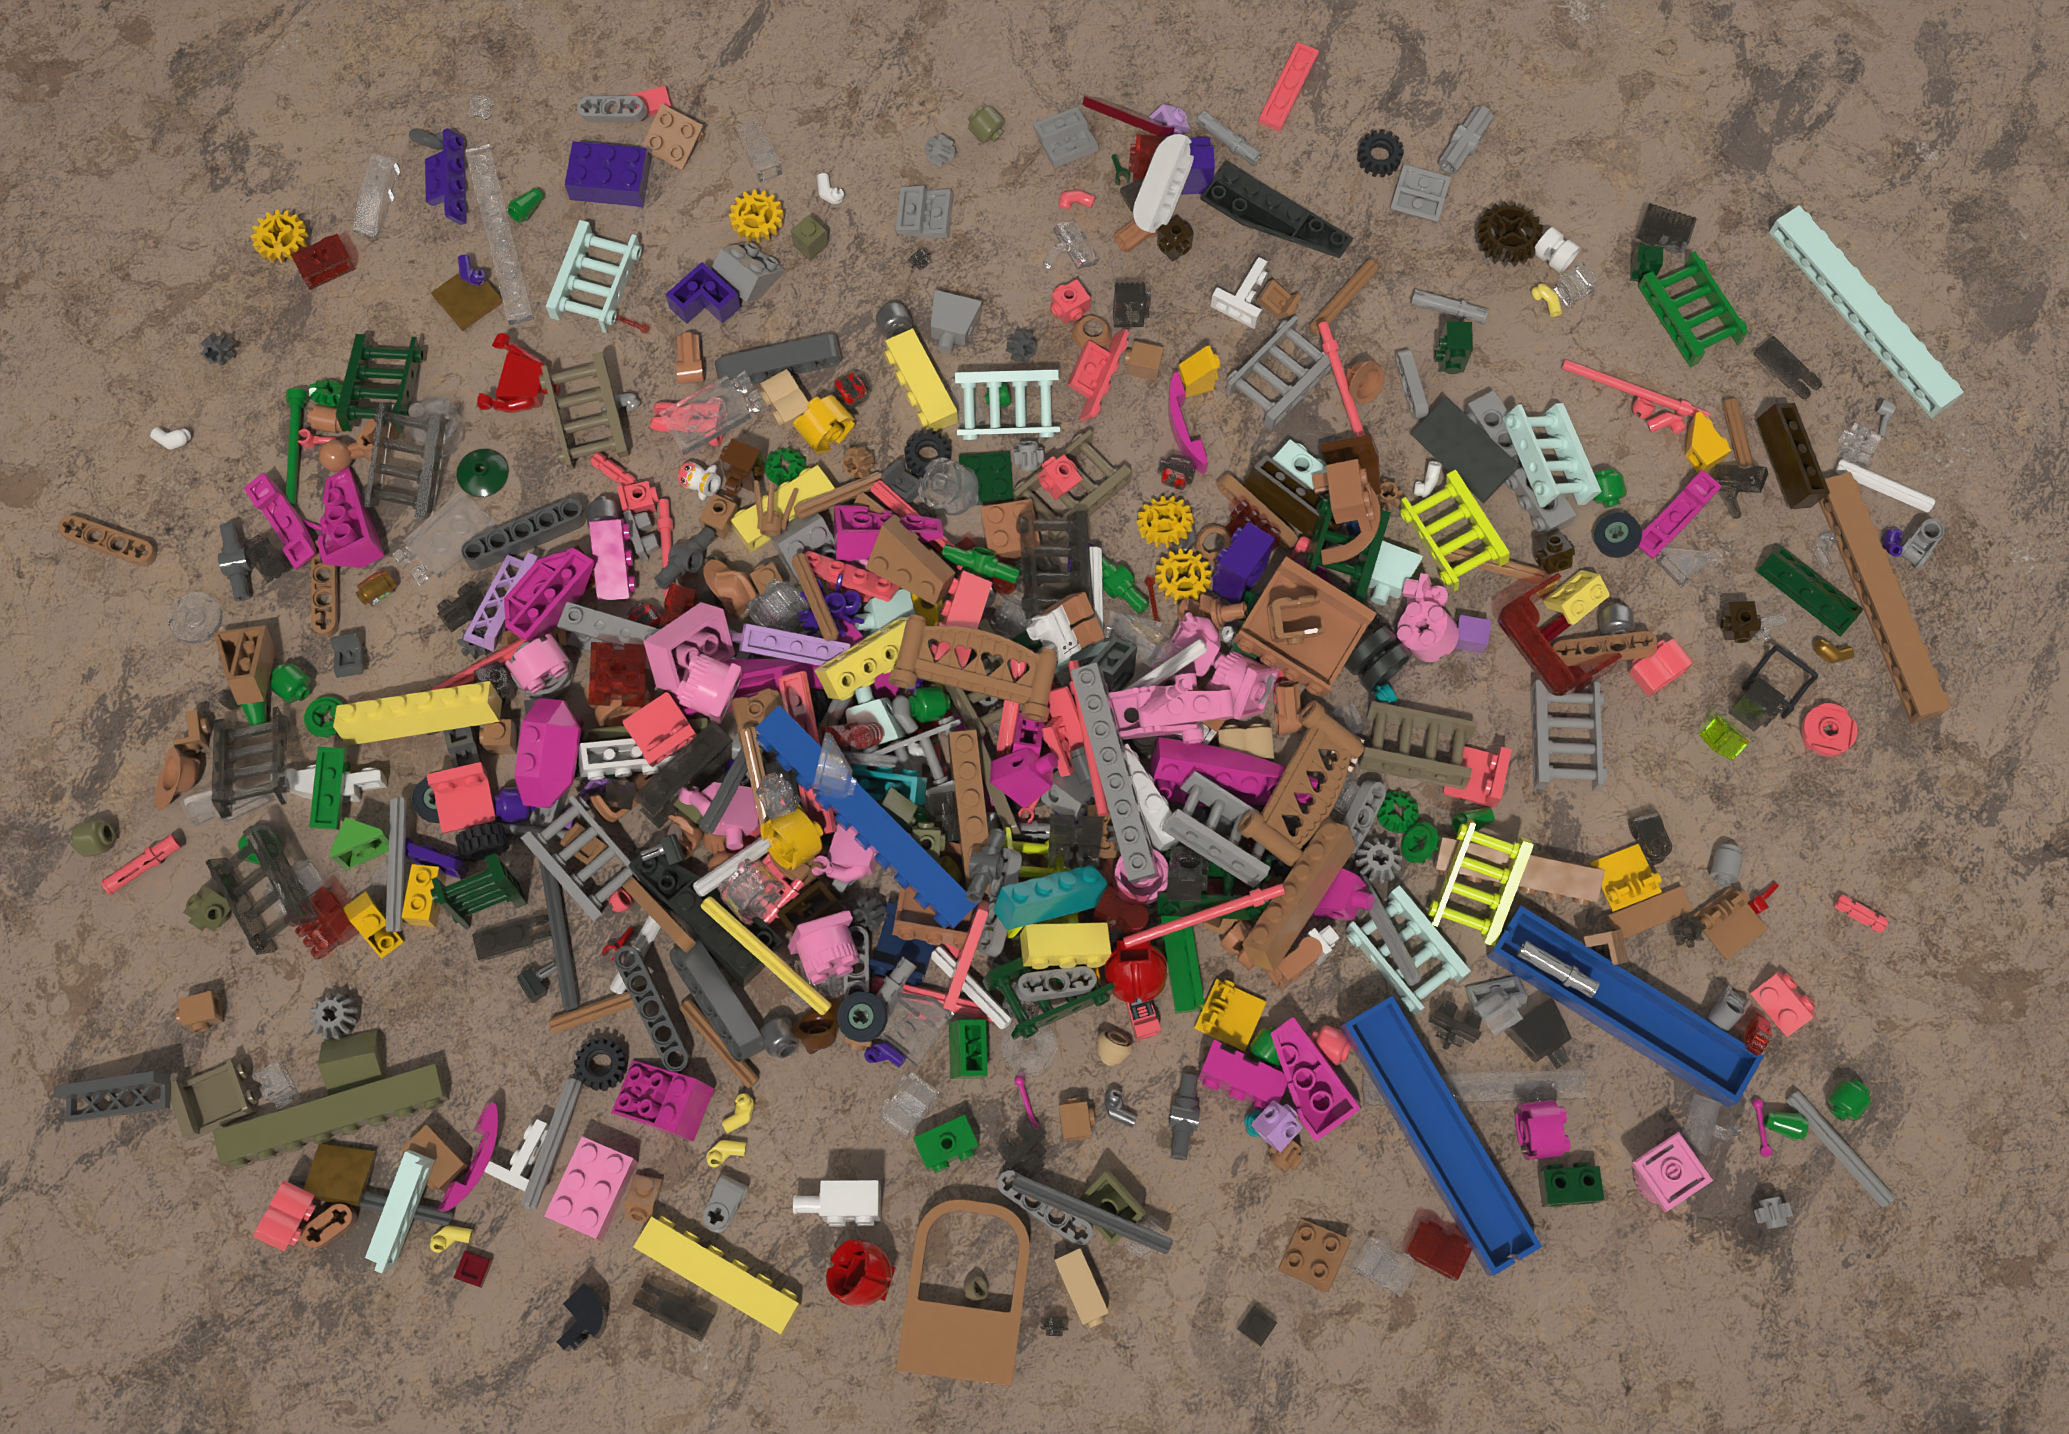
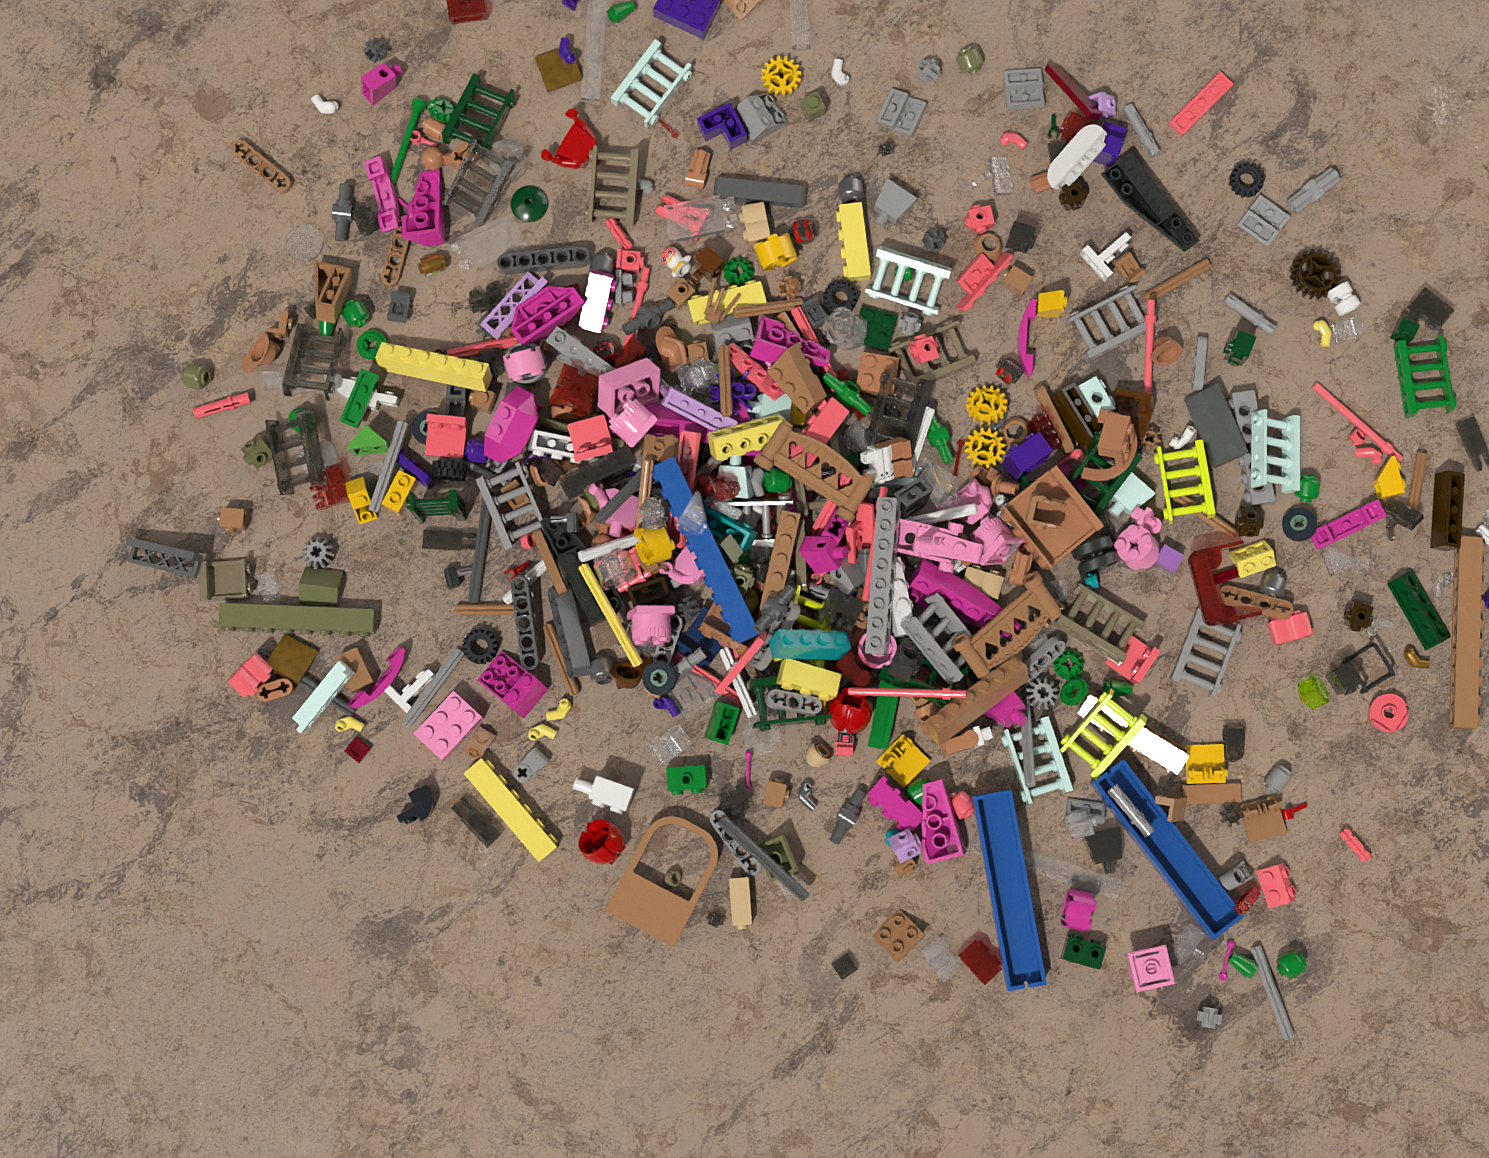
camera: 20 degrees right, 10 degrees up
(234, 385) = (379, 82): none -> dark pink torso
(1467, 1030) = (1056, 827): clear smoke hips -> none

